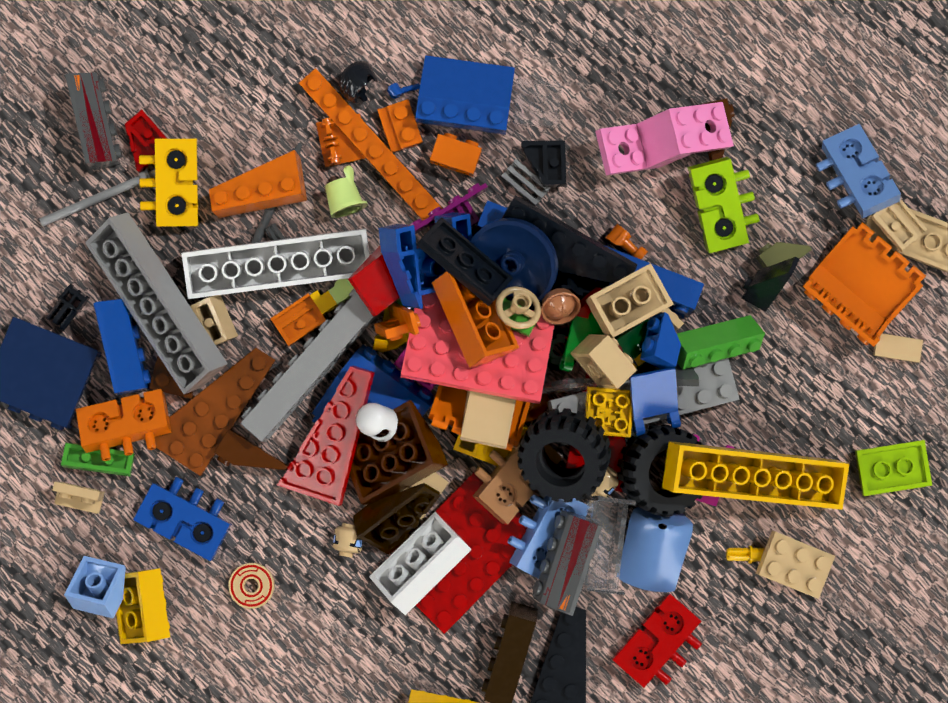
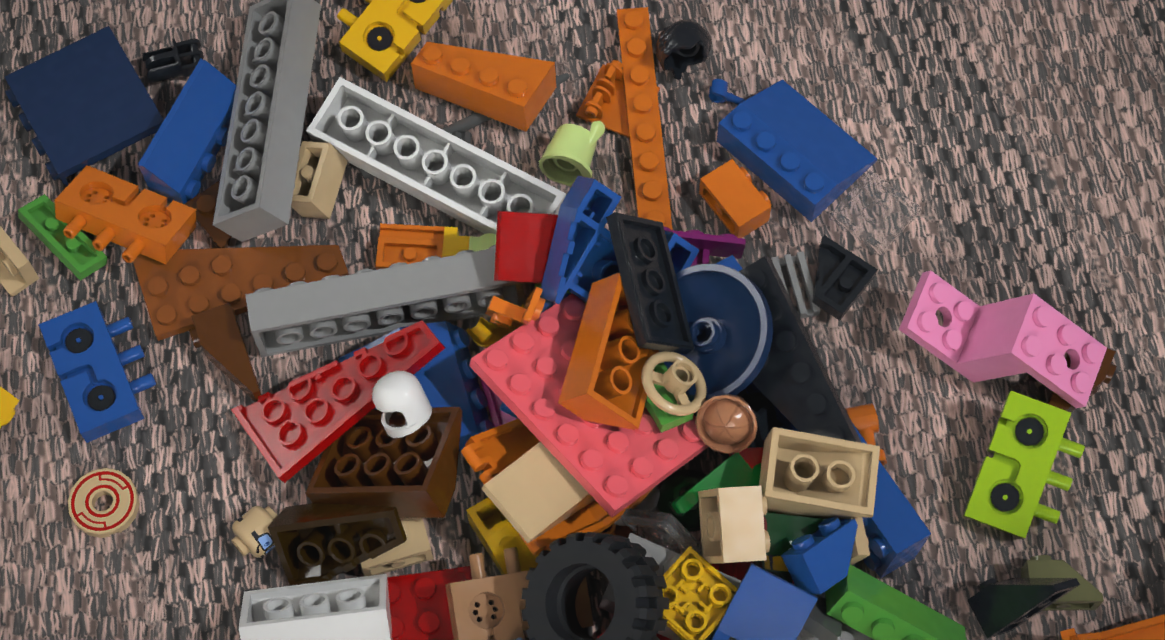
camera: 40 degrees right, 20 degrees down
(400, 126) = (694, 131): orange plate -> none

